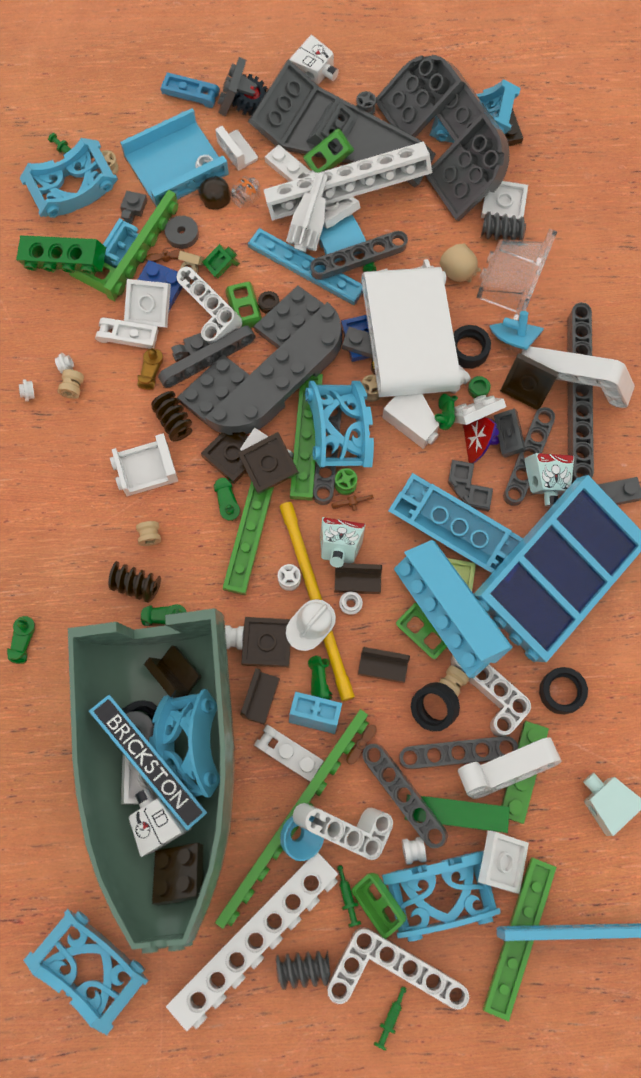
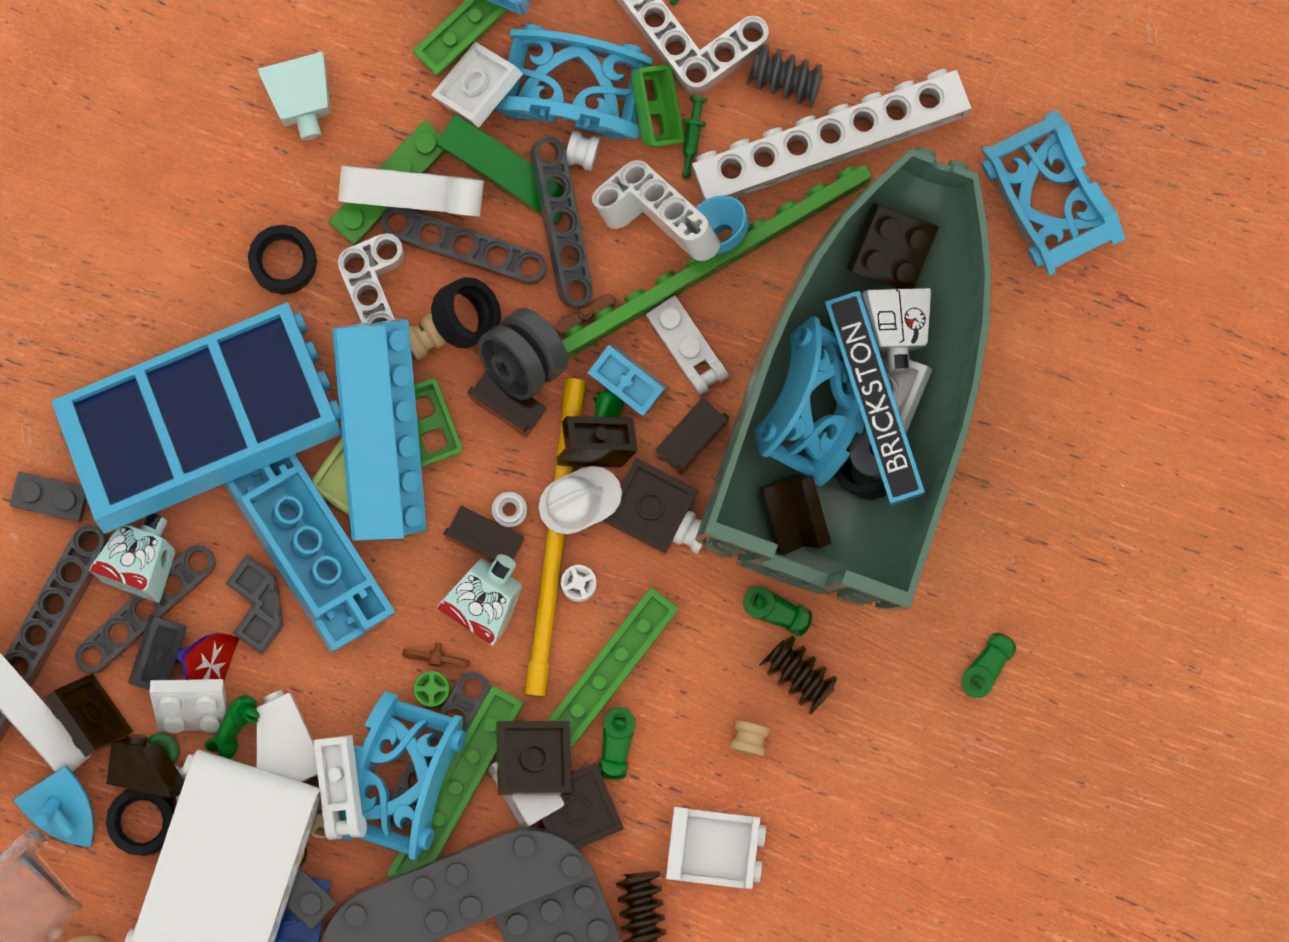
camera: 155 degrees left, 10 degrees up
(316, 664) = (597, 441): none -> dark brown panel
(371, 396) = (339, 787): none -> white plate
(387, 694) = (522, 353): none -> dark grey wheel
(483, 368) = (143, 767): none -> dark brown slope

